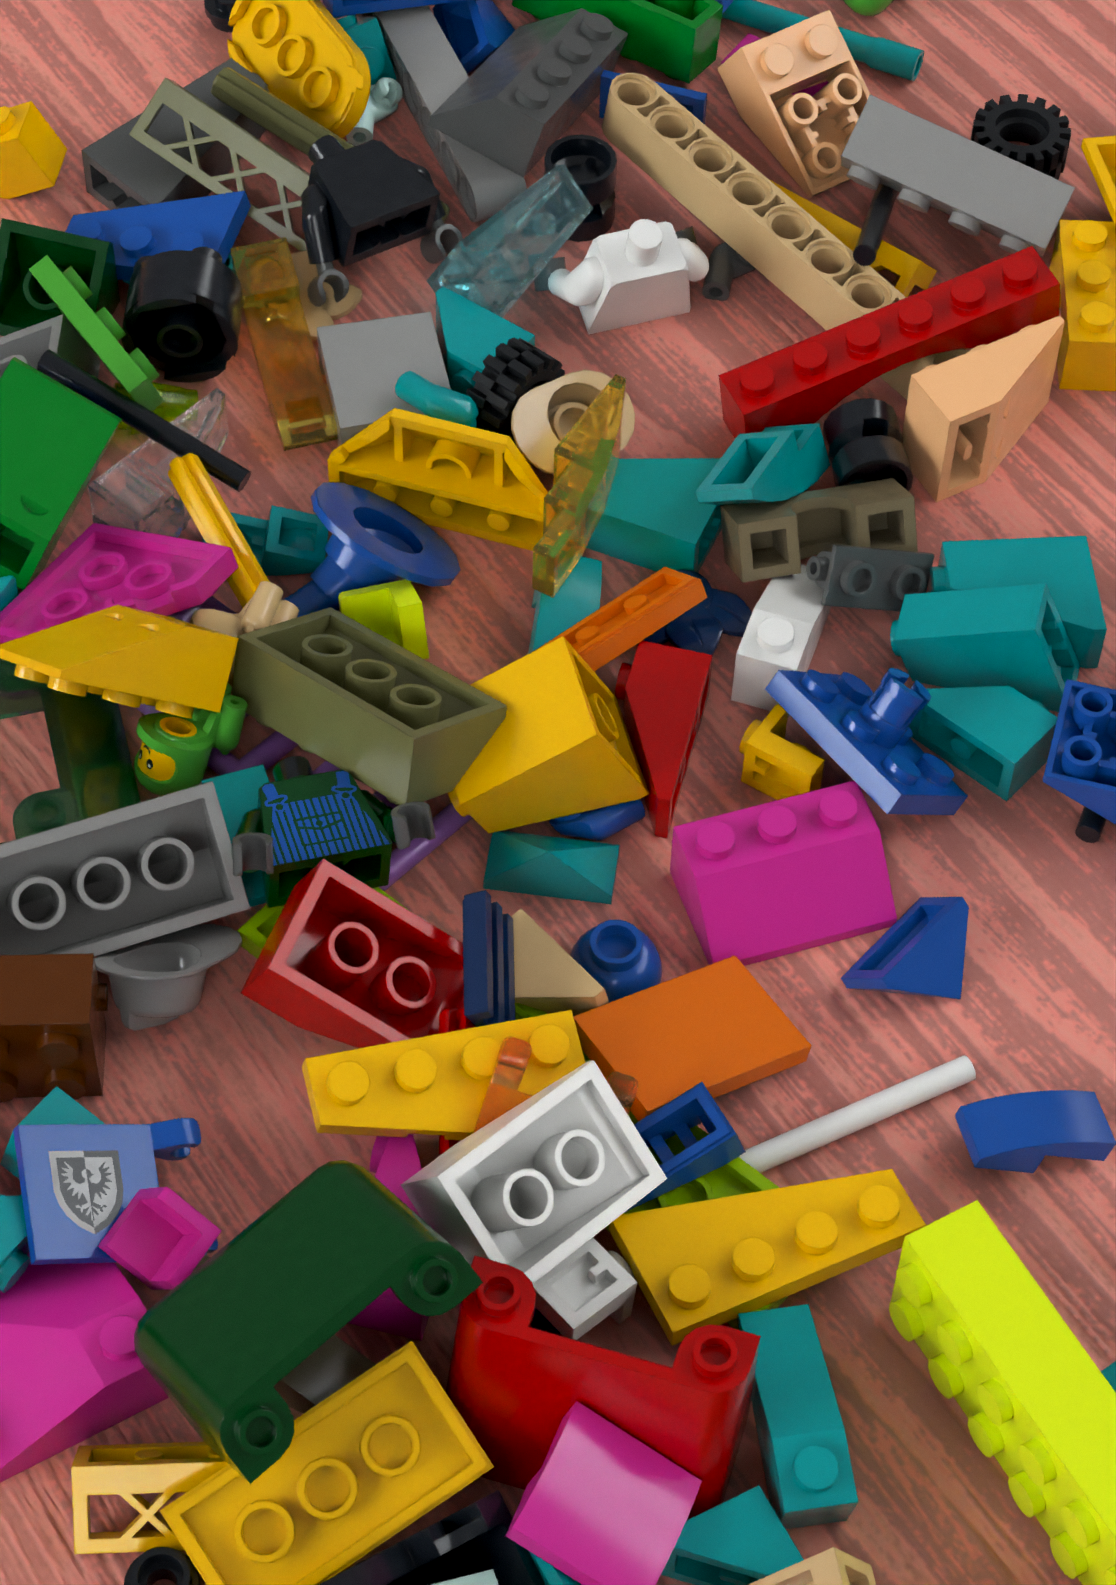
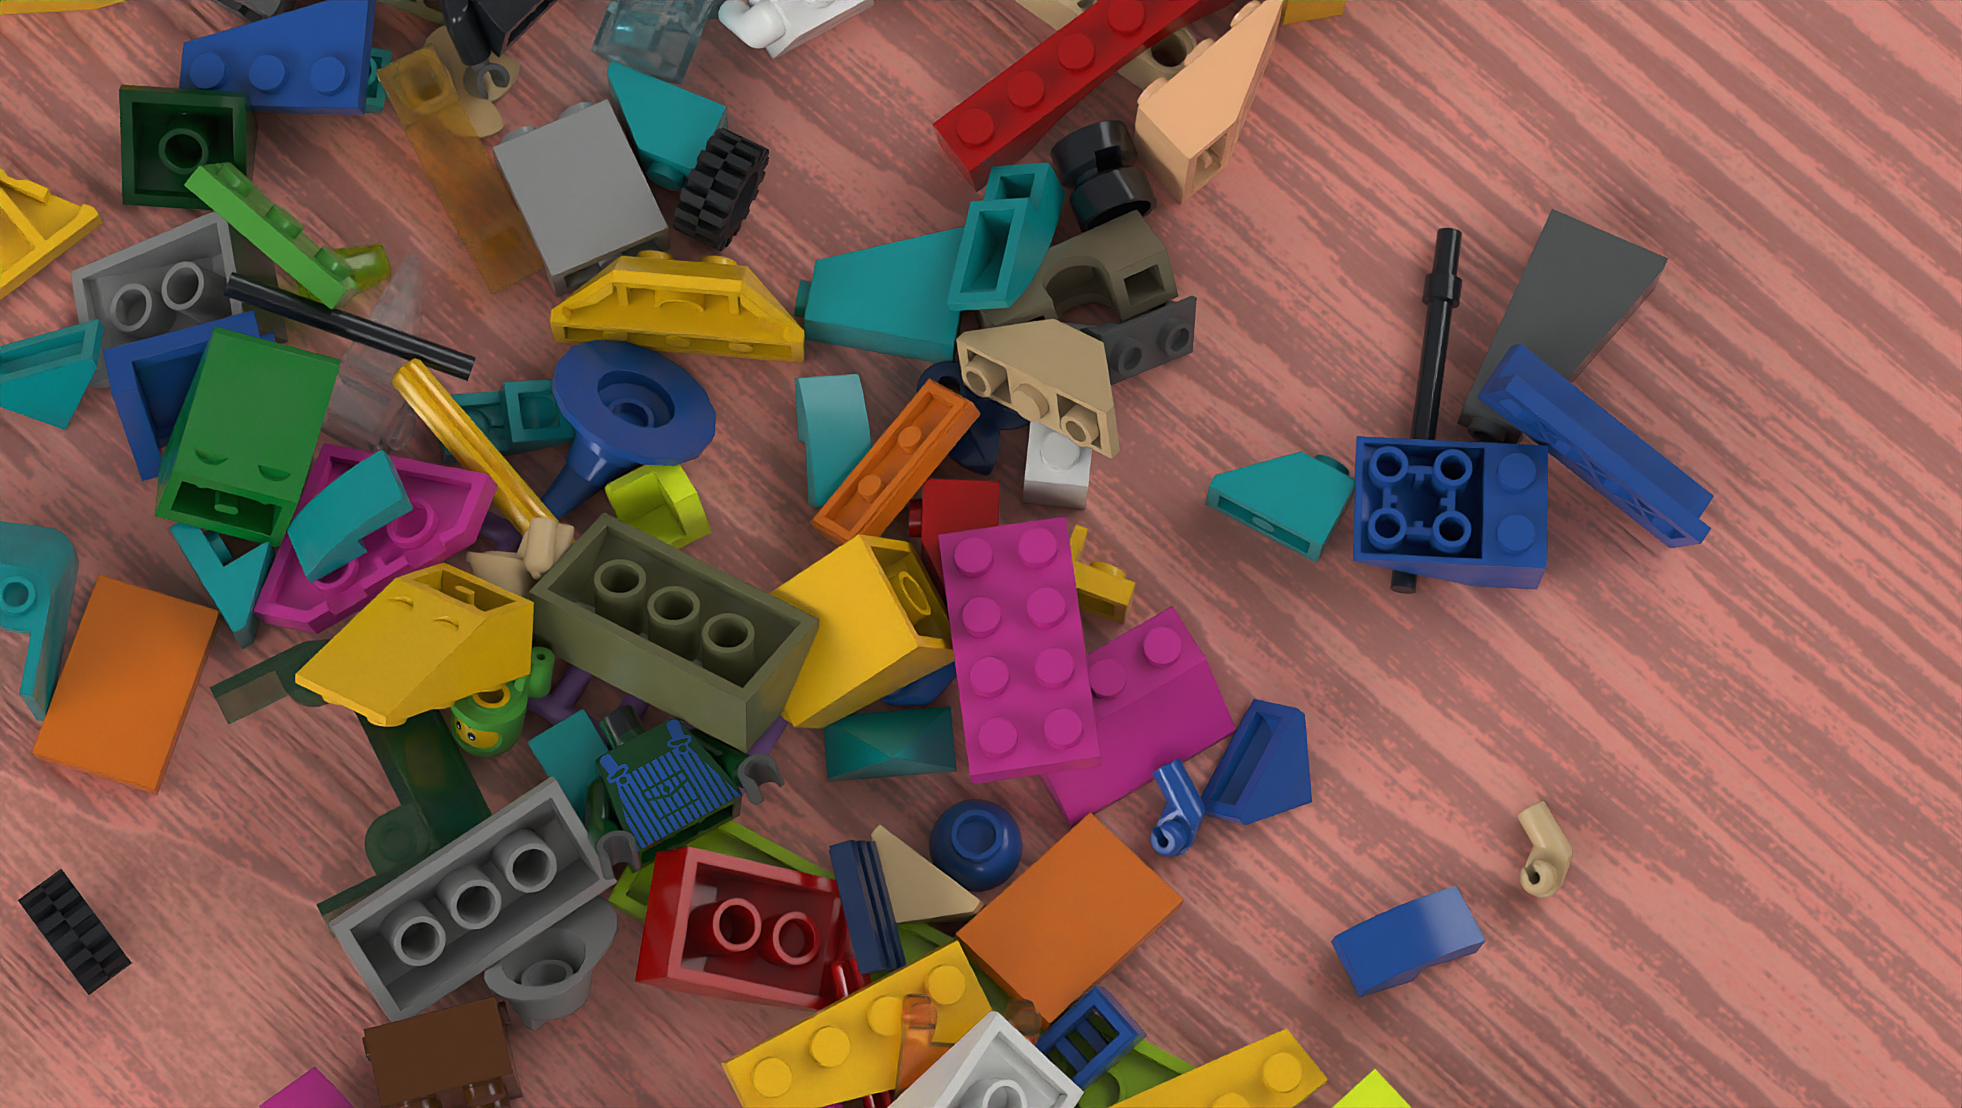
camera: 15 degrees left, 20 degrees up
(73, 568) = (349, 508): none -> teal slope
(184, 313) = (344, 160): black brick -> none
(436, 400) = (650, 232): teal arm -> none
(552, 409) = (792, 213): tan piece -> none
(581, 486) = (825, 293): clear yellow slope -> none
(695, 782) = (1019, 650): none -> dark pink plate
(772, 570) = (1046, 376): none -> tan slope
(827, 974) = (1181, 814): none -> blue arm
(860, 1114) = (1240, 957): white bar -> none
(872, 736) = (1173, 543): blue plate -> none
(987, 640) = (1268, 396): teal slope -> none
(1057, 561) = (1294, 320): teal slope -> none

